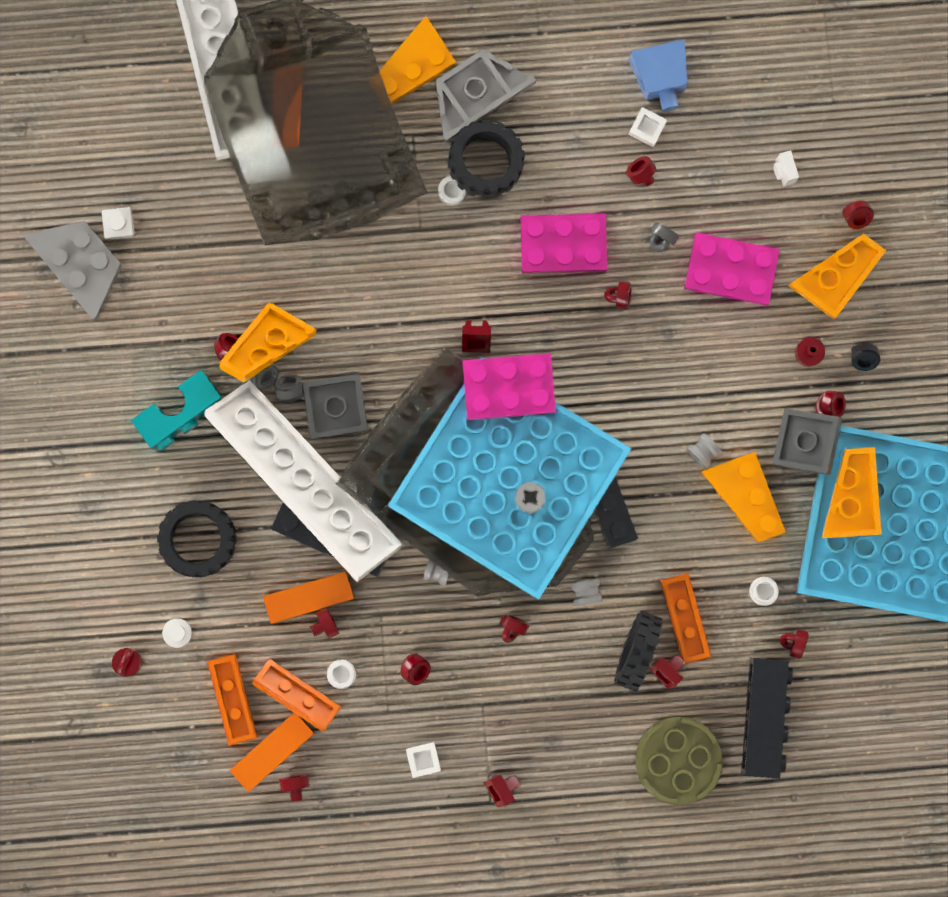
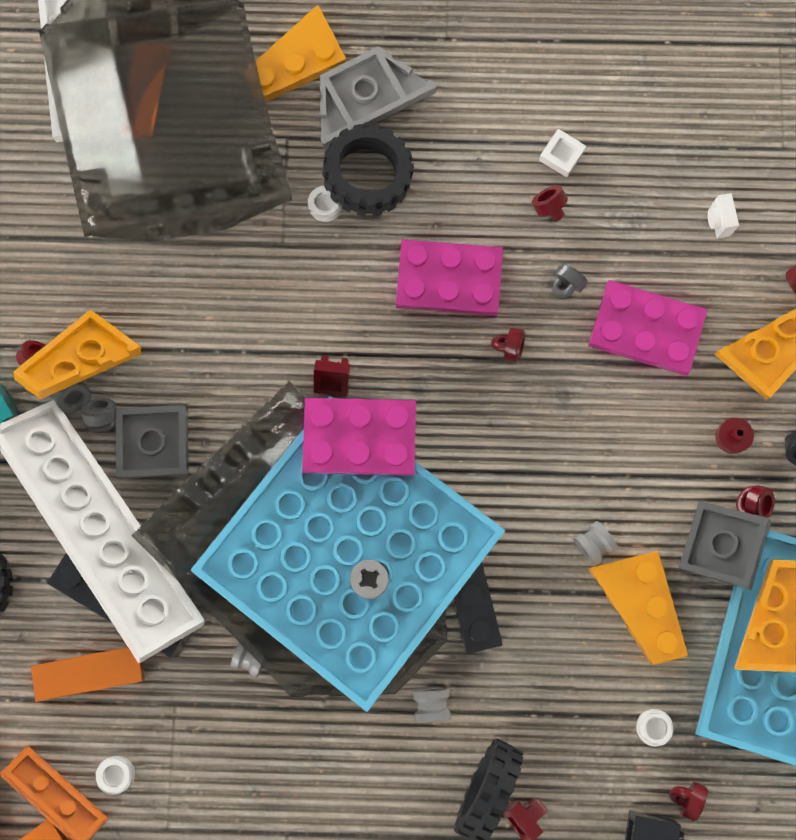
camera: 10 degrees right, 5 degrees down
(325, 624) = (103, 710): dark red tile -> none
(415, 669) = (206, 780): dark red tile -> none
(513, 625) = (334, 736): dark red tile -> none
(661, 72) = (584, 91): medium blue torso -> none
(685, 618) = (553, 751): orange tile -> none

